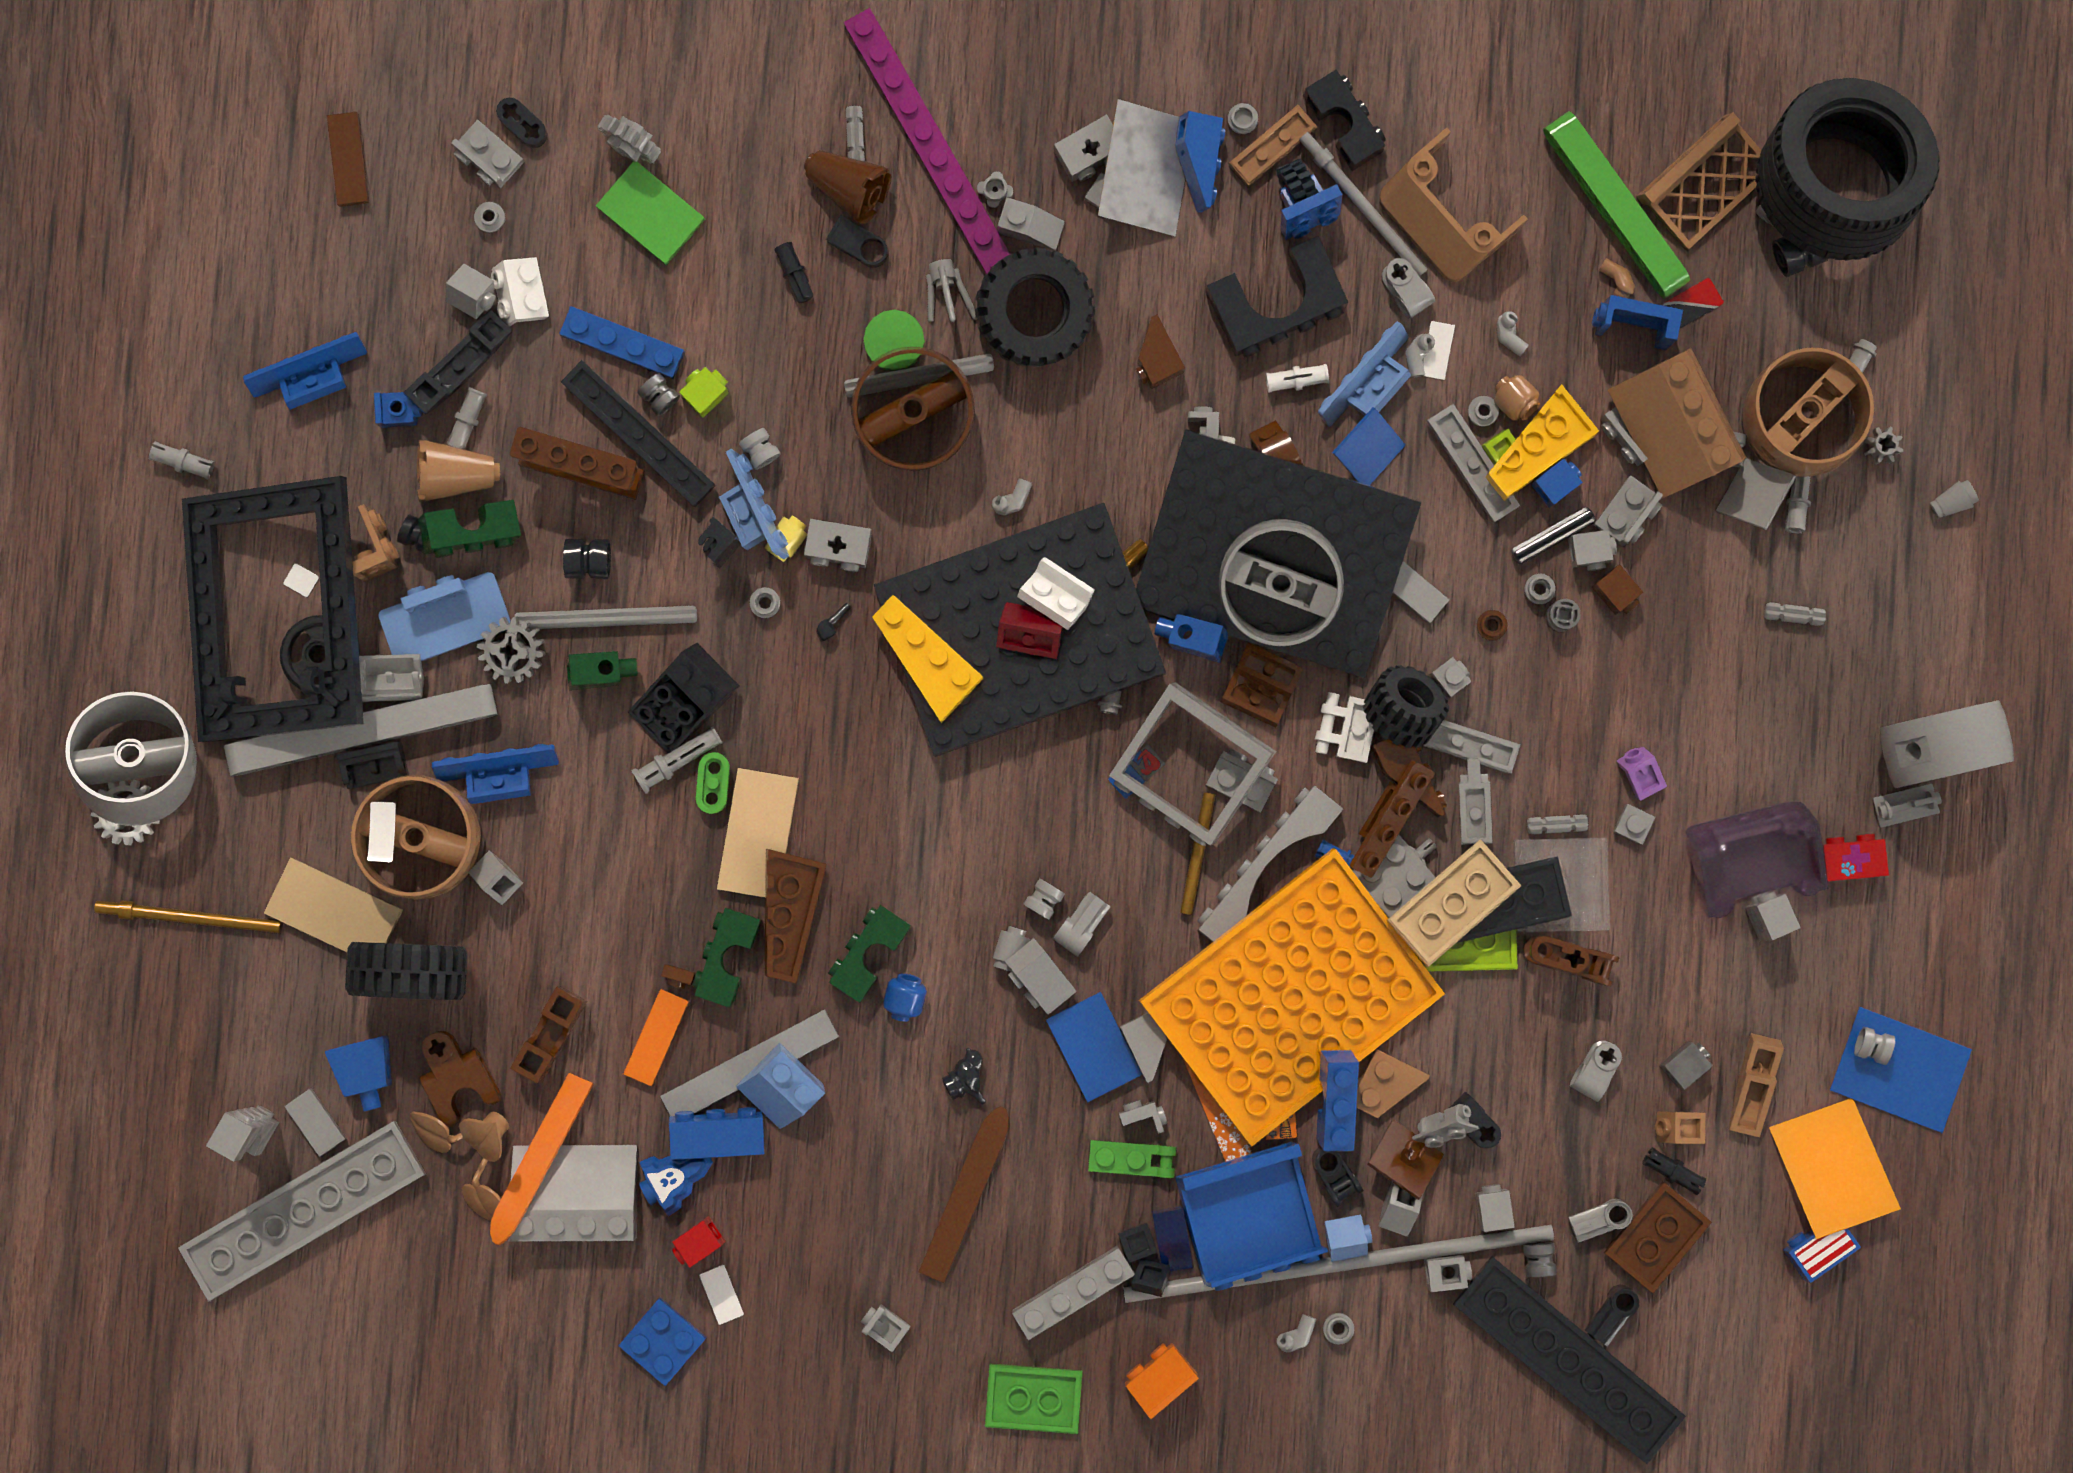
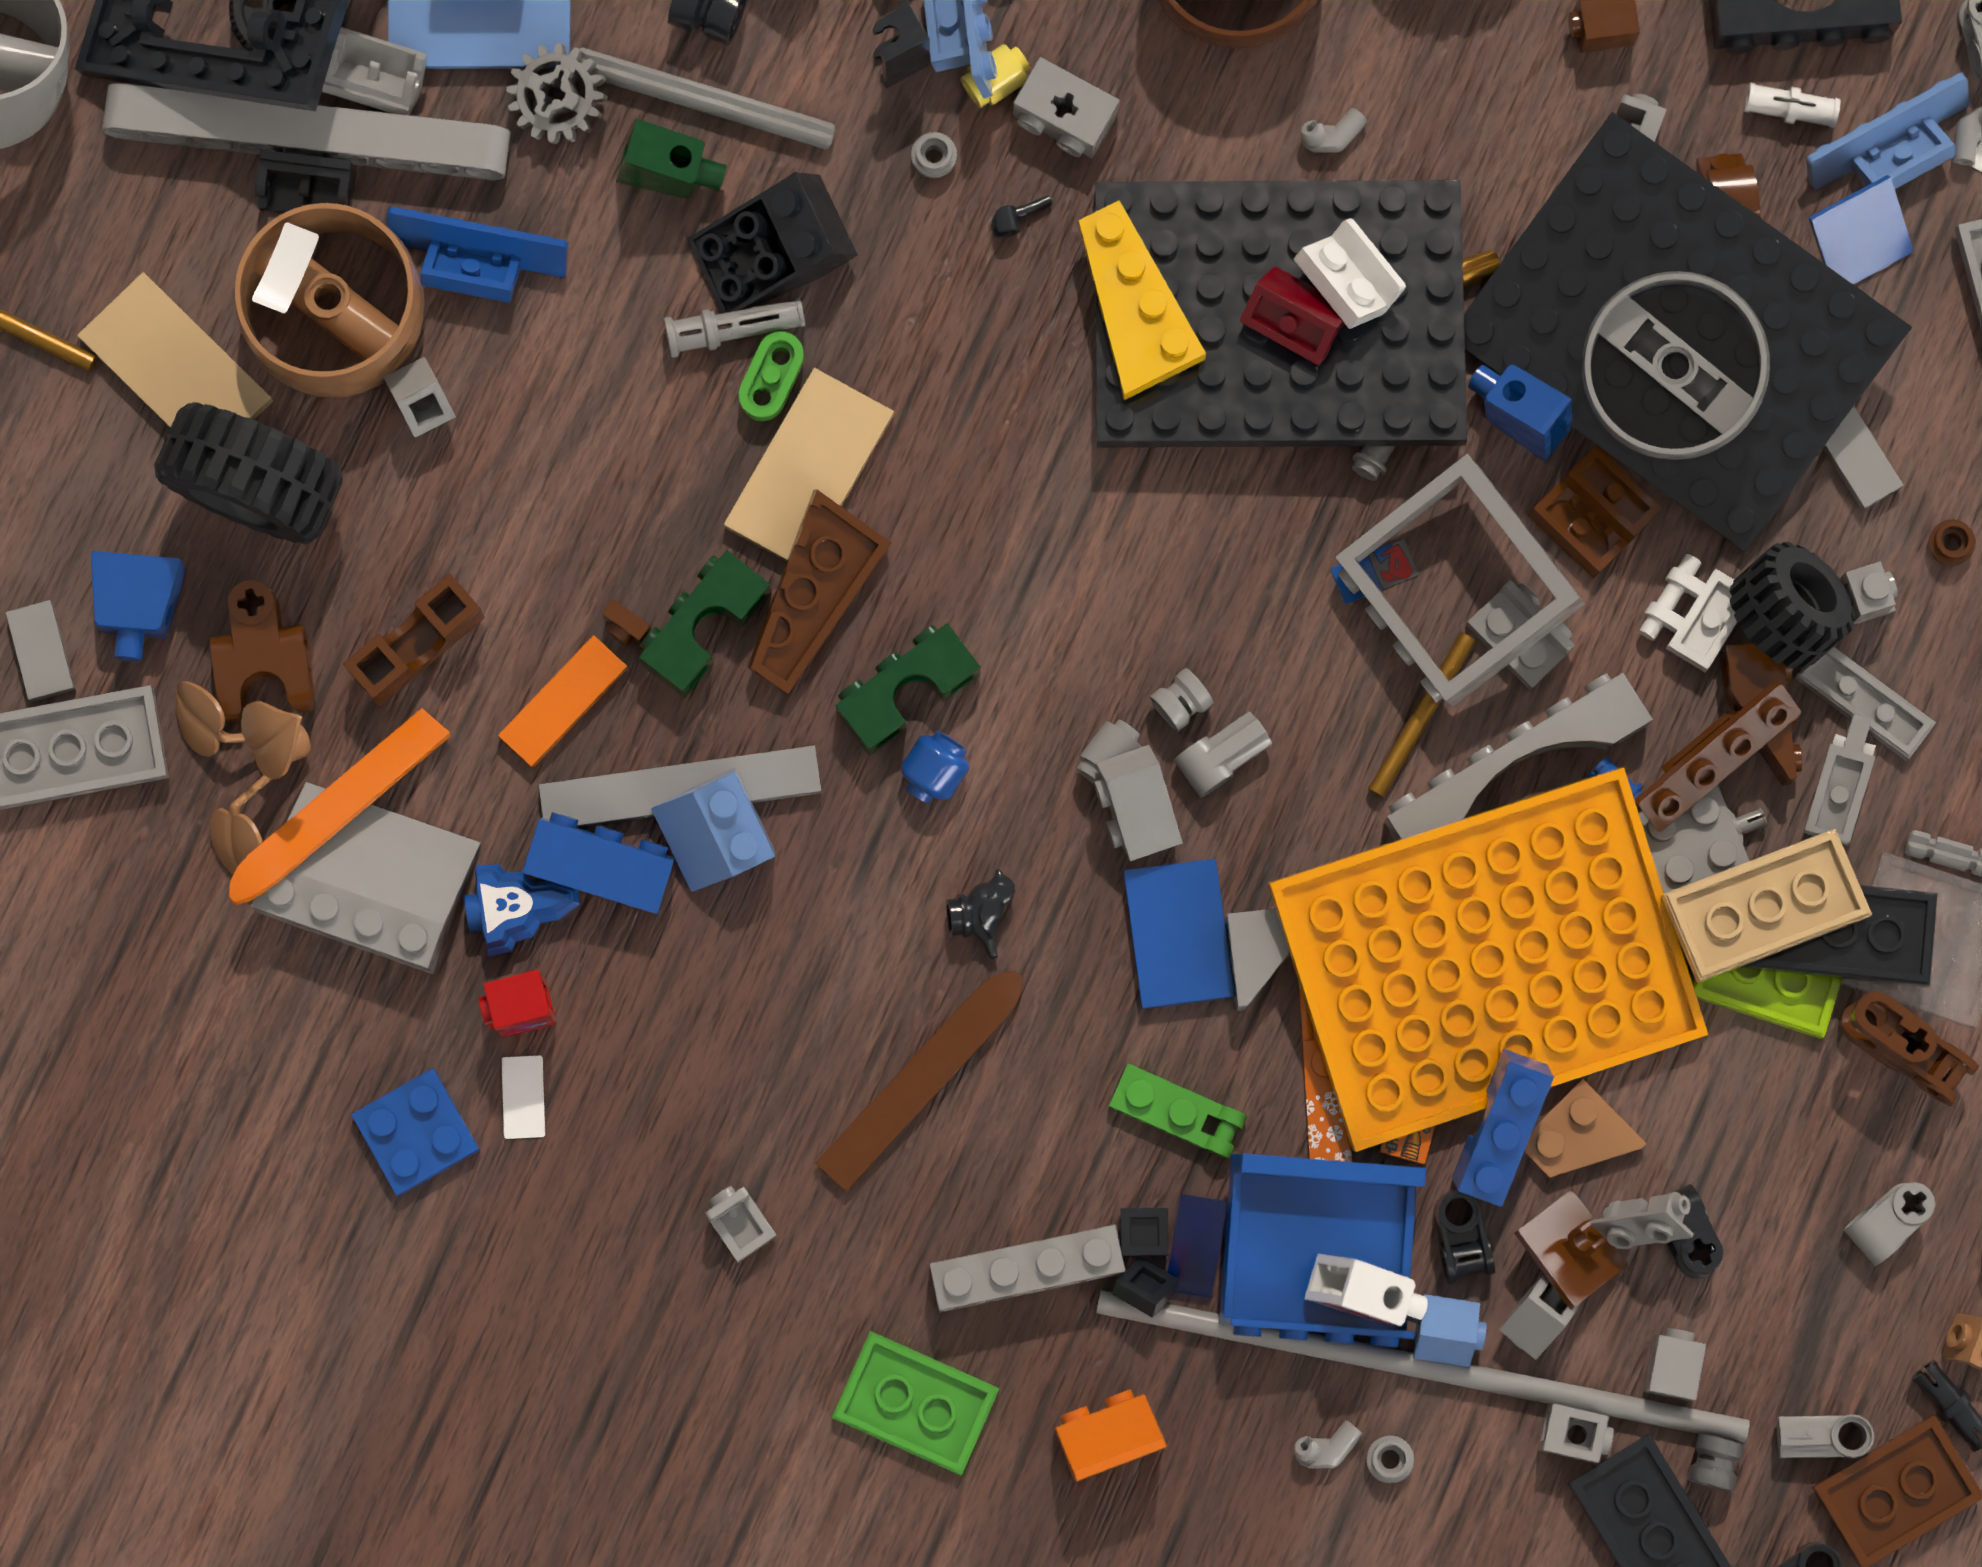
camera: 20 degrees right, 5 degrees down
(1136, 1111) = (1207, 1045): light grey bracket -> none
(1287, 1235) = (1365, 1291): none -> white torso

